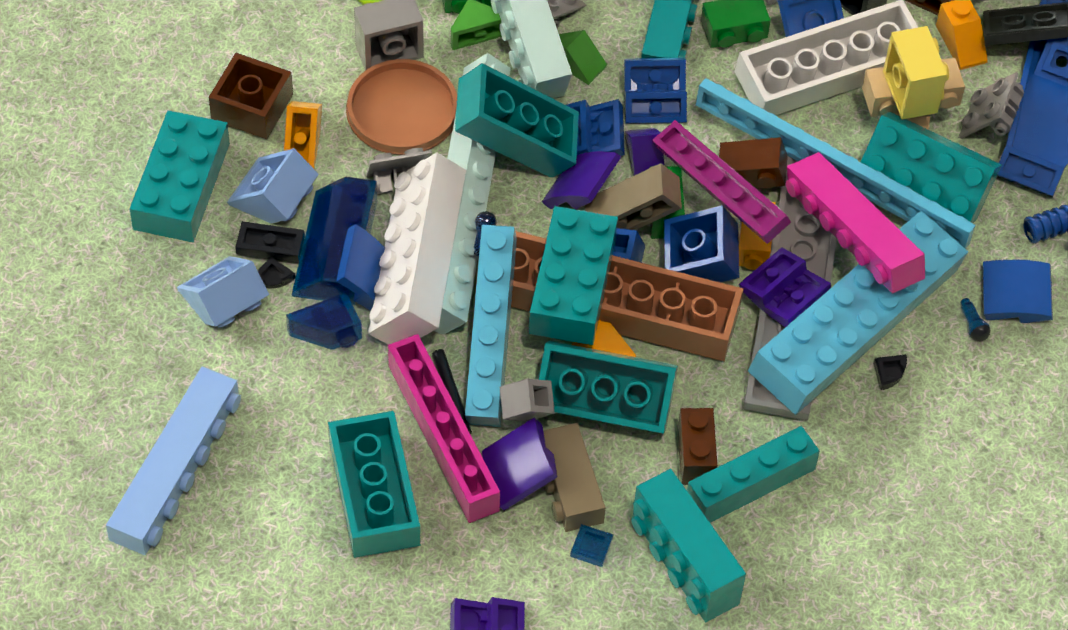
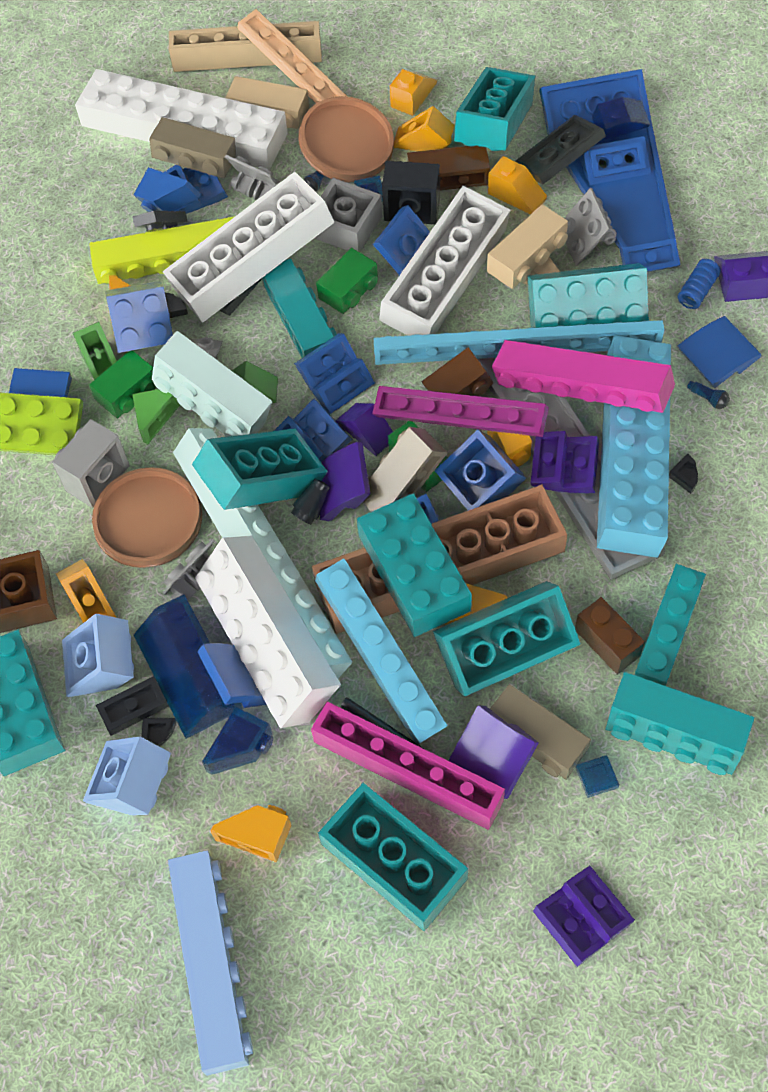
camera: 30 degrees left, 5 degrees up
(286, 395) = (255, 831): none -> light orange slope
(482, 218) = (303, 570): clear blue piece -> none
(527, 399) = (461, 695): light grey brick -> none
(542, 180) = (310, 502): none -> black cone
(915, 72) = (535, 231): light yellow brick -> none

